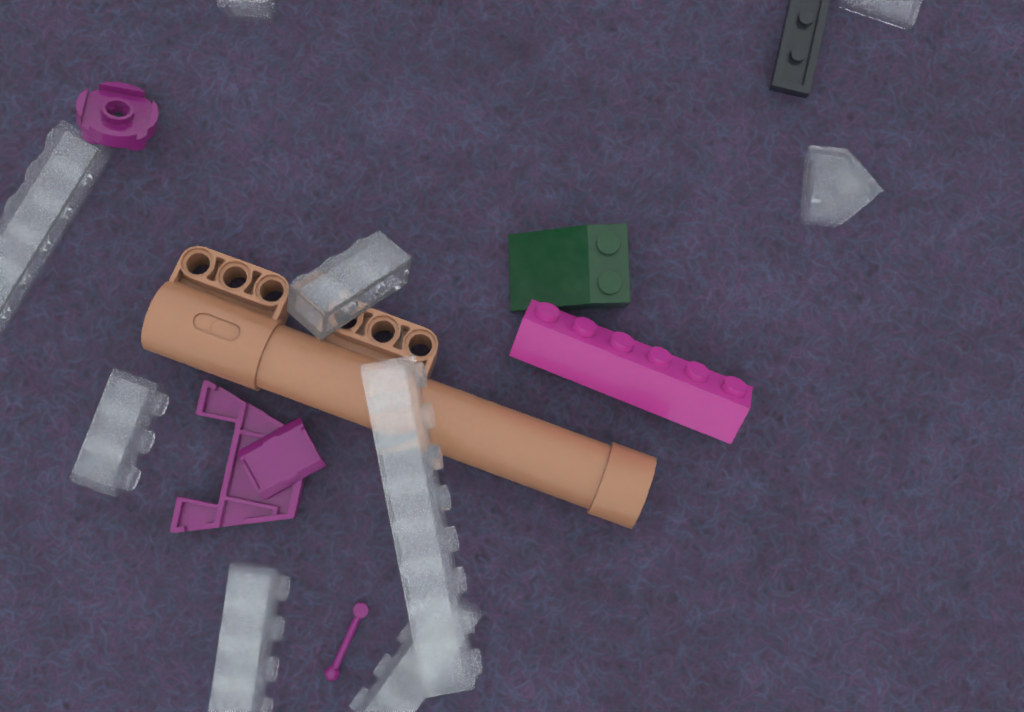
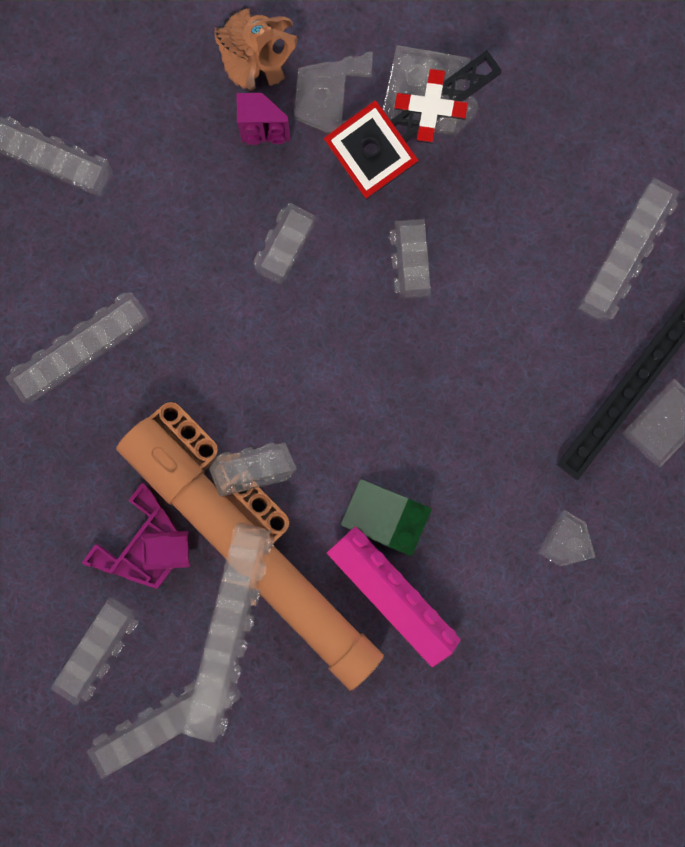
camera: 20 degrees right, 0 degrees up
(99, 125) = (157, 313): magenta plate -> none
(120, 433) = (80, 491): clear brick -> none
(360, 611) = (170, 660): magenta hinge -> none

